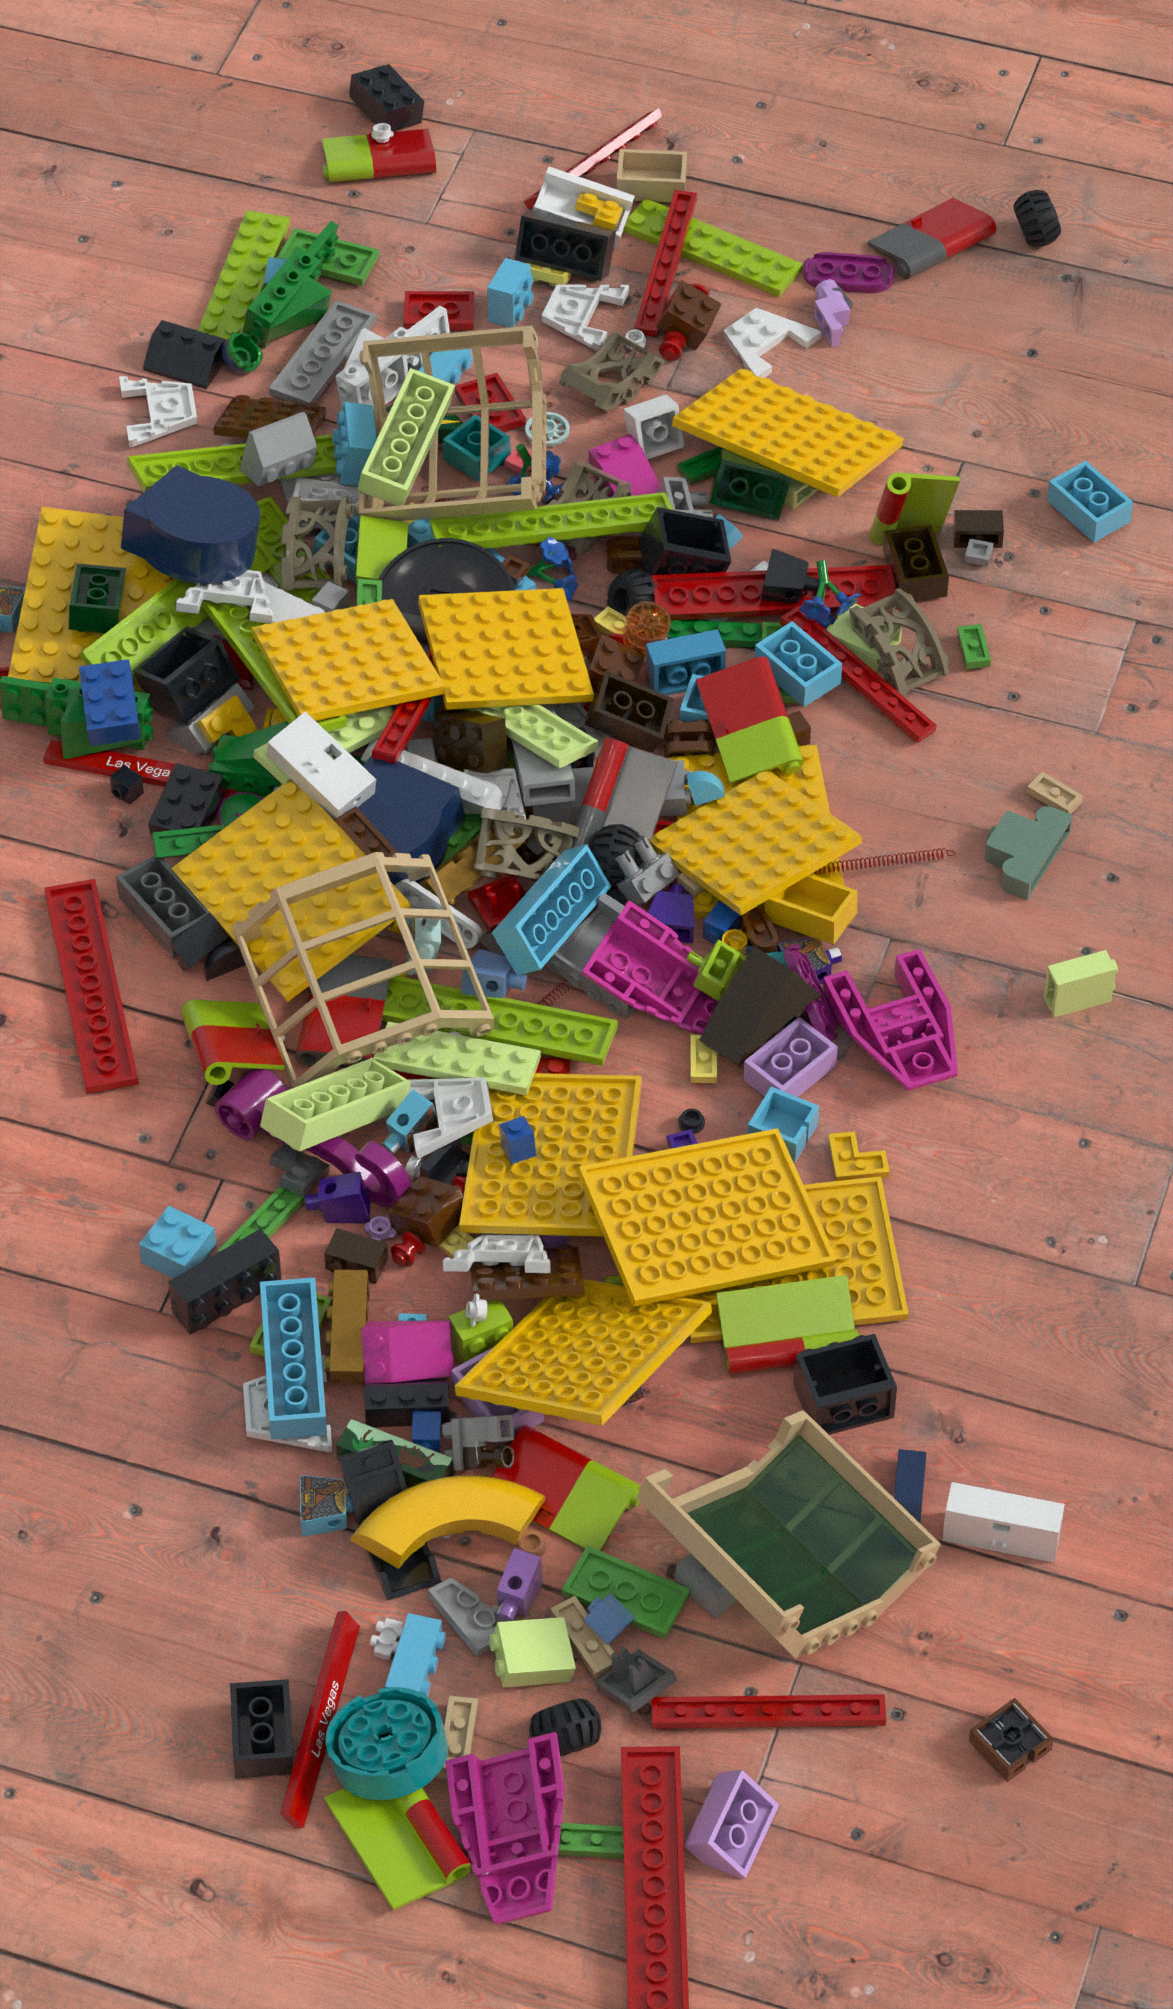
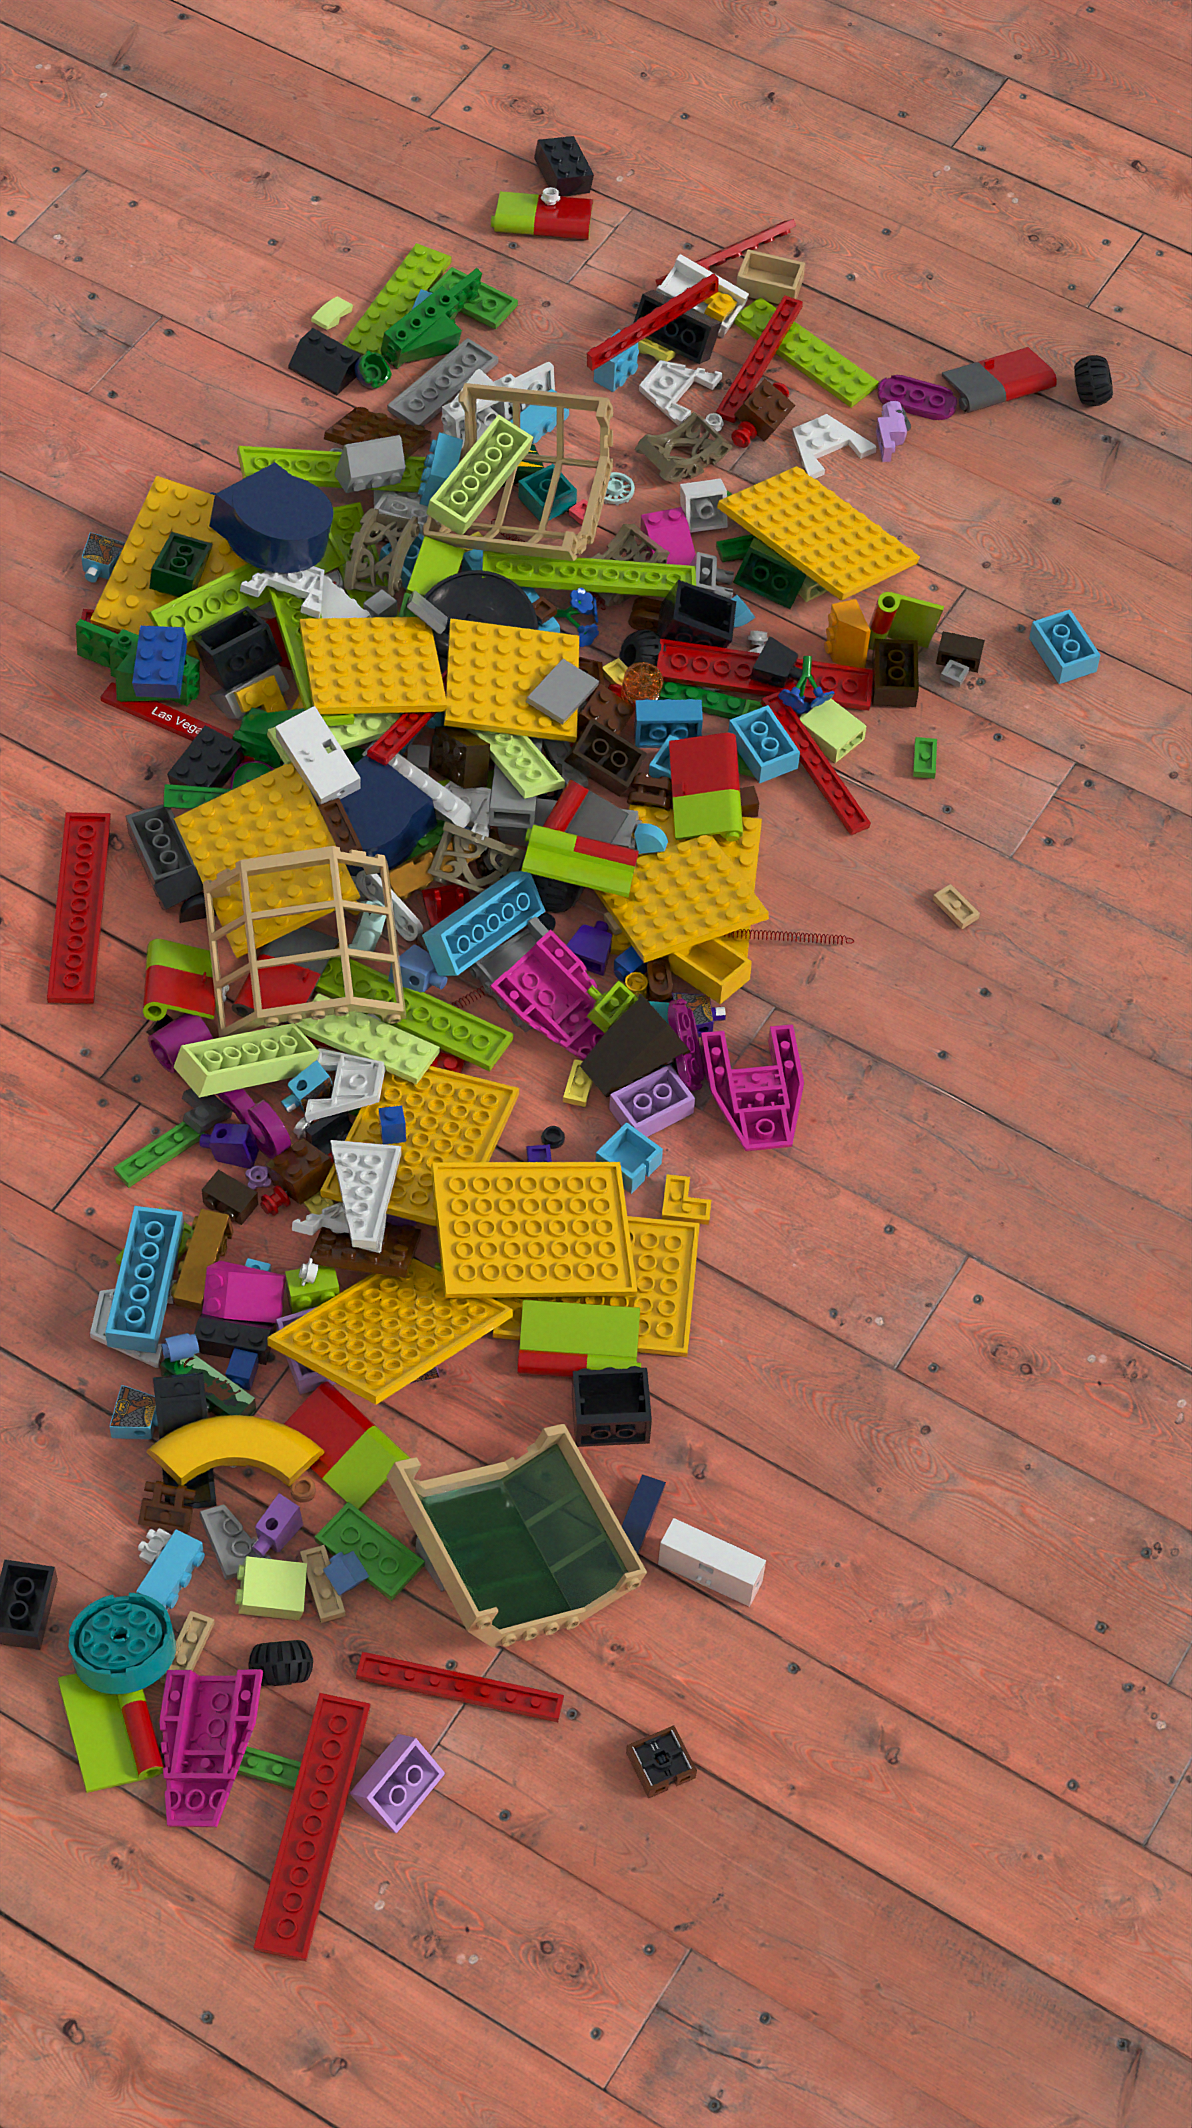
camera: 10 degrees right, 5 degrees up
(126, 784) = (162, 735): black plate -> none
(169, 406) = (299, 405): white wing -> none
(174, 301) = (330, 313): none -> yellowish green slope
(177, 1243) = (82, 1154): medium azure brick -> none
(224, 1281) = (109, 1196): black brick -> none
(321, 1712) = (80, 1597): red tile -> none
(355, 1420) = (180, 1347): none -> medium blue brick
(389, 1602) = (165, 1514): none -> reddish brown plate
(390, 594) = (427, 612): none -> light grey tile
(458, 305) = (567, 362): red plate -> none
(471, 1439) = (275, 1384): light grey hips -> none
(497, 392) = (577, 447): red plate -> none
(511, 1206) = (365, 1184): none -> white wing
(543, 242) = (652, 322): none -> red plate
(552, 469) = (604, 525): blue plant -> none
(565, 648) = (562, 691): none -> light grey tile
(634, 1679) = (352, 1632): dark grey plate -> none
(638, 821) = (579, 860): none -> lime door
(648, 878) = (578, 911): light grey brick -> none
(754, 556) = (758, 637): none -> white plate
(854, 532) = (847, 634): none -> light orange slope
(867, 625) = (835, 717): dark tan fence -> none
(1026, 847) = (917, 950): sand green brick -> none
(1080, 983) = (925, 1084): yellowish green brick -> none

